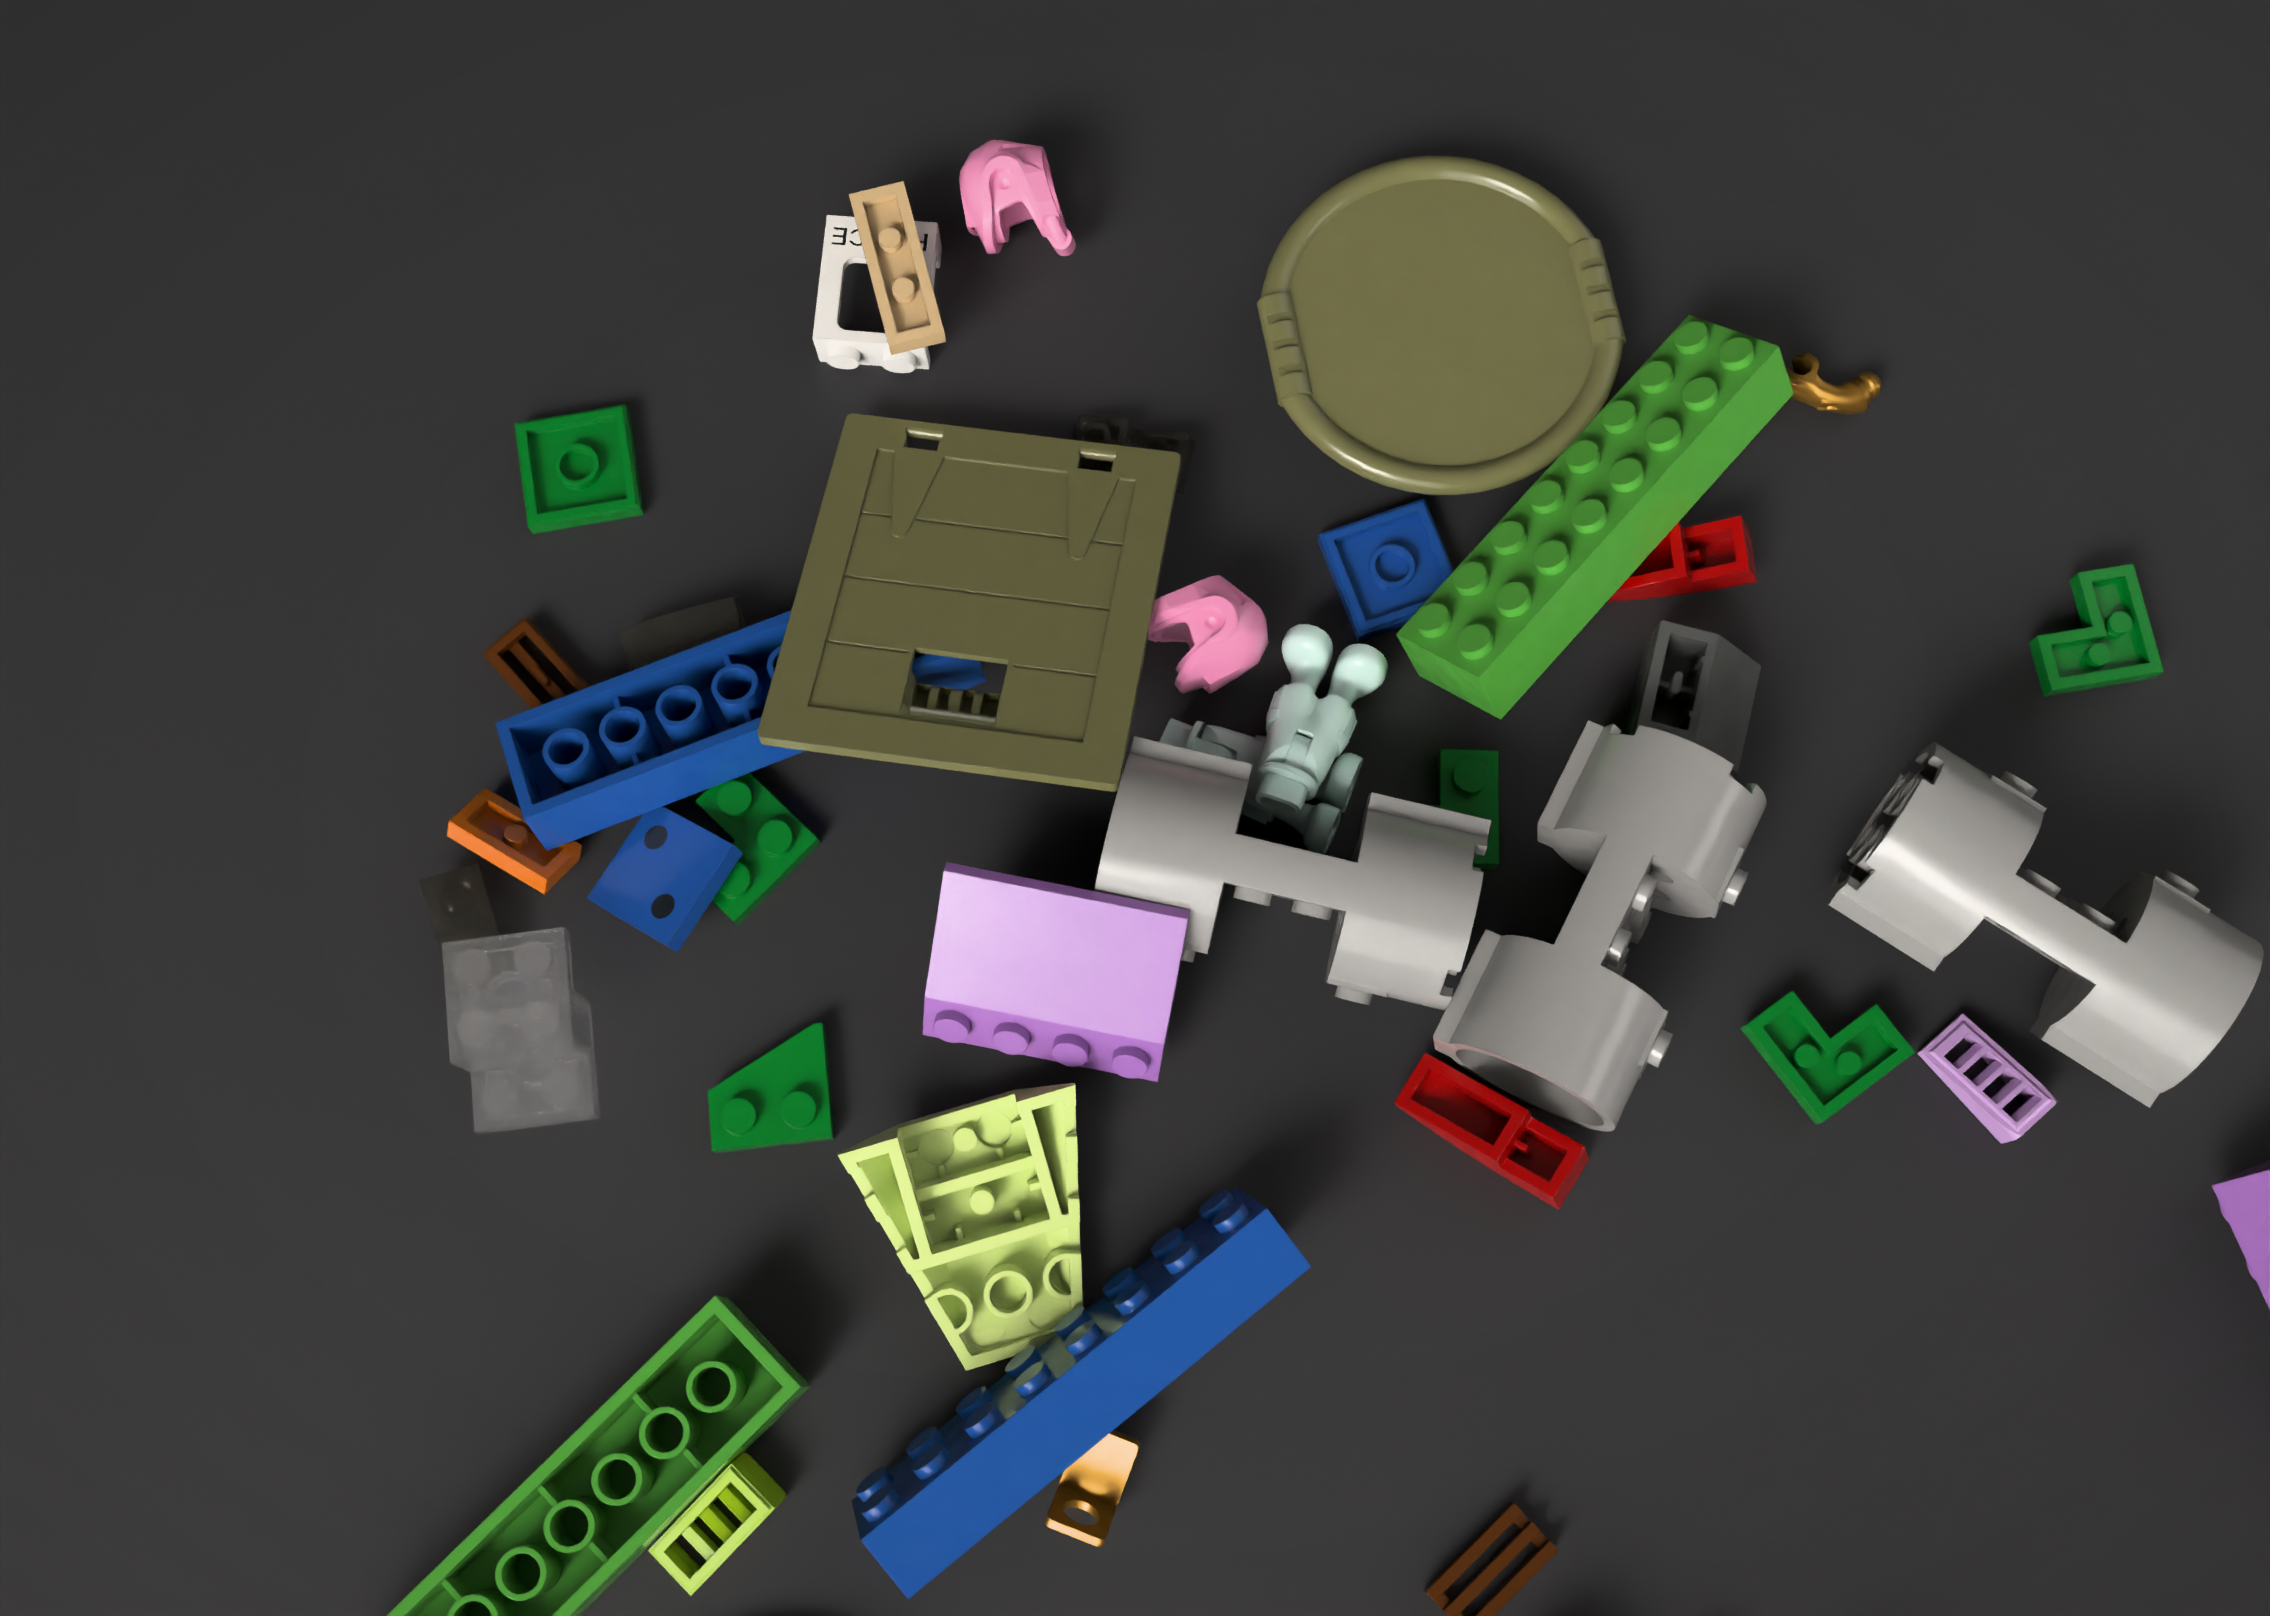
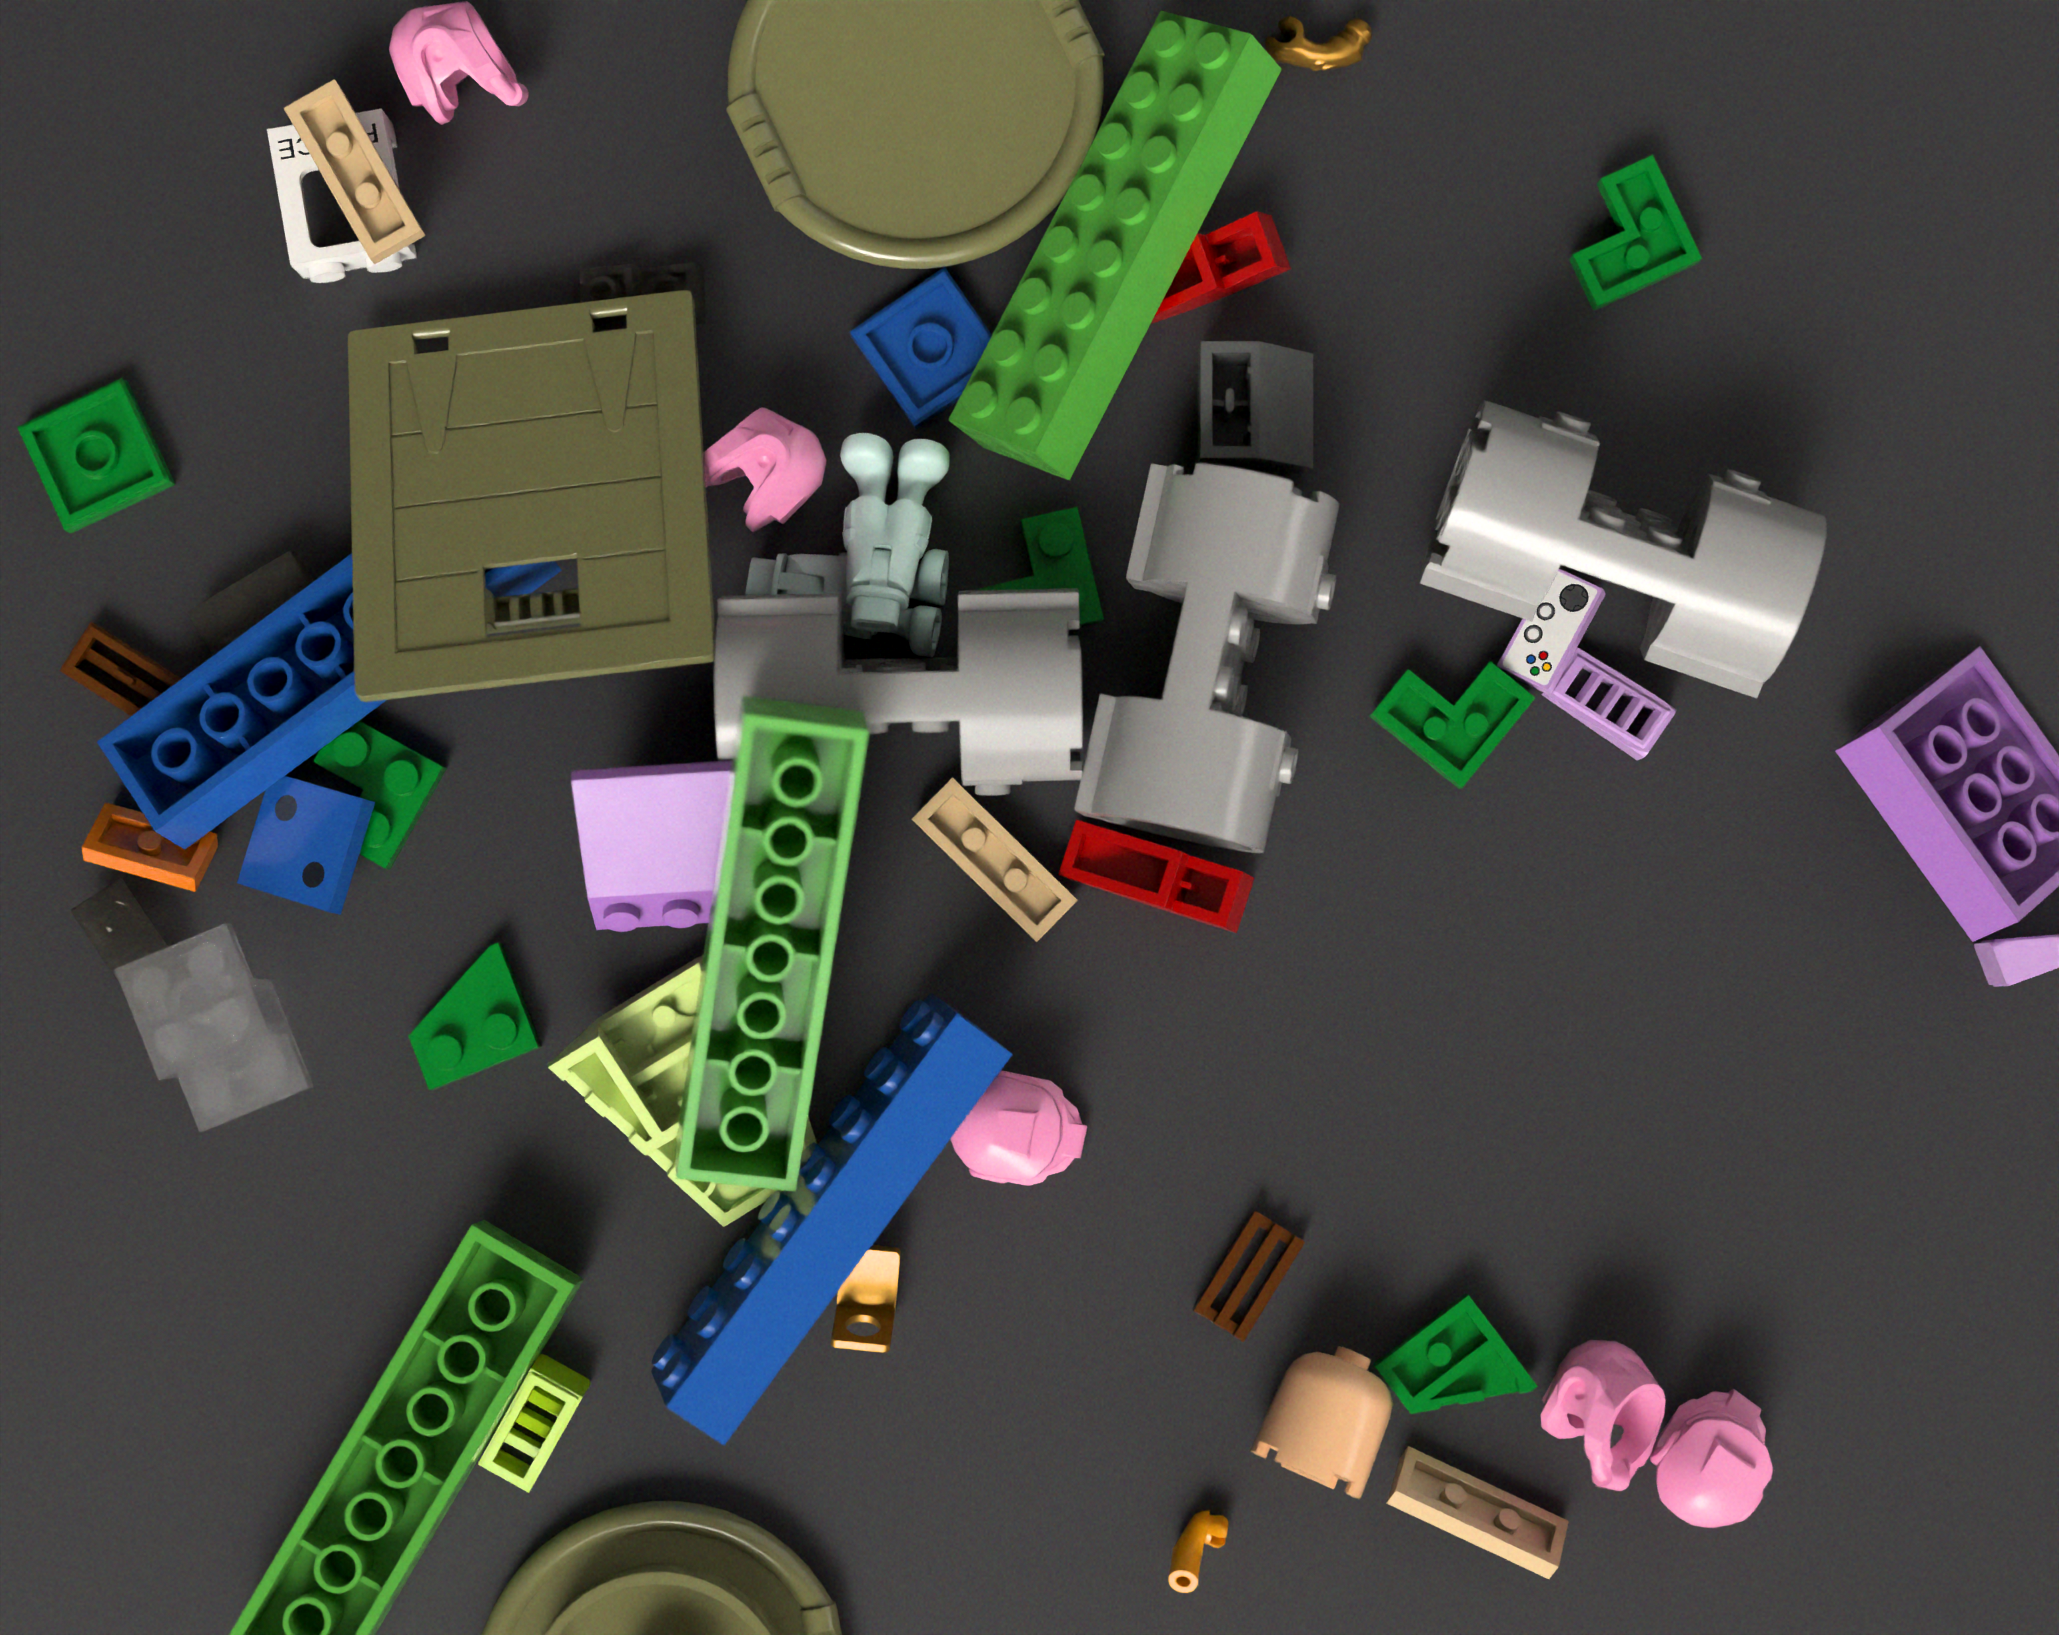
camera: 15 degrees left, 10 degrees up
(1096, 1088) = (770, 942): none -> bright green brick
(1293, 1353) = (1020, 1131): none -> bright pink helmet
(1334, 1071) = (994, 859): none -> tan plate
(1938, 999) = (1546, 644): none -> tile

